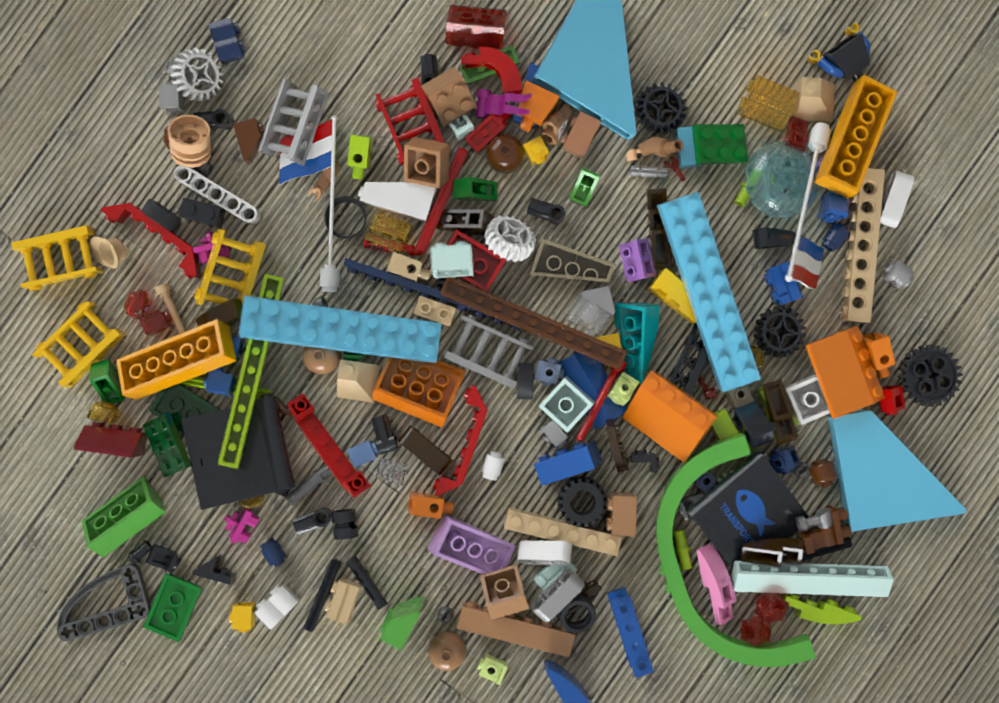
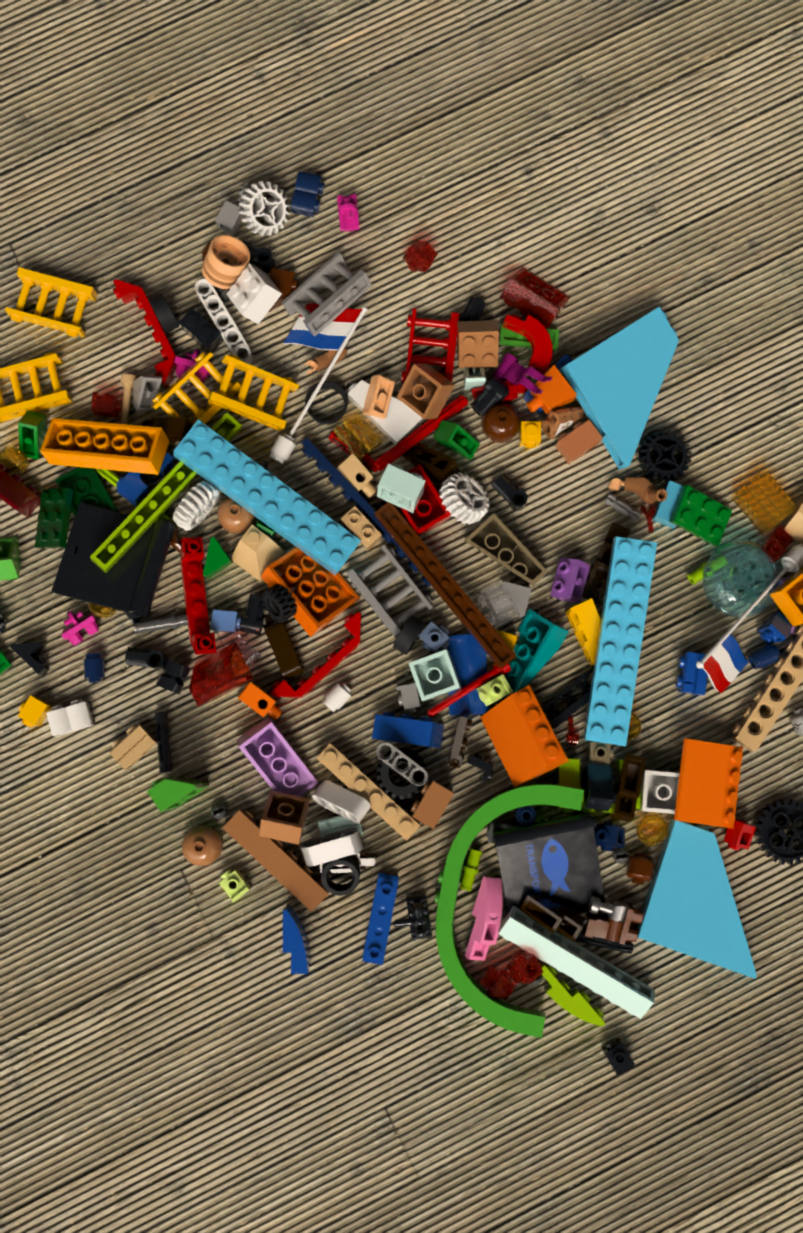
camera: 25 degrees right, 5 degrees down
(108, 251) = (99, 320): tan piece -> none
(138, 303) = (99, 380): clear red head -> none
(183, 292) = (144, 390): none -> light grey slope
(230, 156) = (254, 293): none -> white brick
(271, 261) = (238, 404): none -> yellow fence
(272, 38) = (348, 213): none -> dark pink hips
(283, 369) = (196, 505): none -> white gear
(322, 595) = (116, 731): black axle -> none
(325, 403) = (216, 559): none -> green slope
(356, 44) = (419, 256): none -> clear red brick
(360, 146) = (372, 346): lime torso -> none
(383, 502) = (219, 675): none -> clear red slope
(388, 189) = (378, 396): none -> light nougat slope
(400, 414) = (279, 603): none -> black tyre
(486, 132) = (493, 393): none -> black piece
(584, 187) = (557, 489): bright green slope -> none
(588, 500) = (411, 768): none -> light grey beam
(660, 613) = (418, 918): none -> black piece
(773, 237) = (703, 626): black piece -> none
(781, 323) = (677, 702): black gear -> none
(817, 435) = (652, 829): none -> clear yellow hair
(880, 352) = (750, 784): orange torso -> none
(885, 636) = (618, 1056): none -> black brick

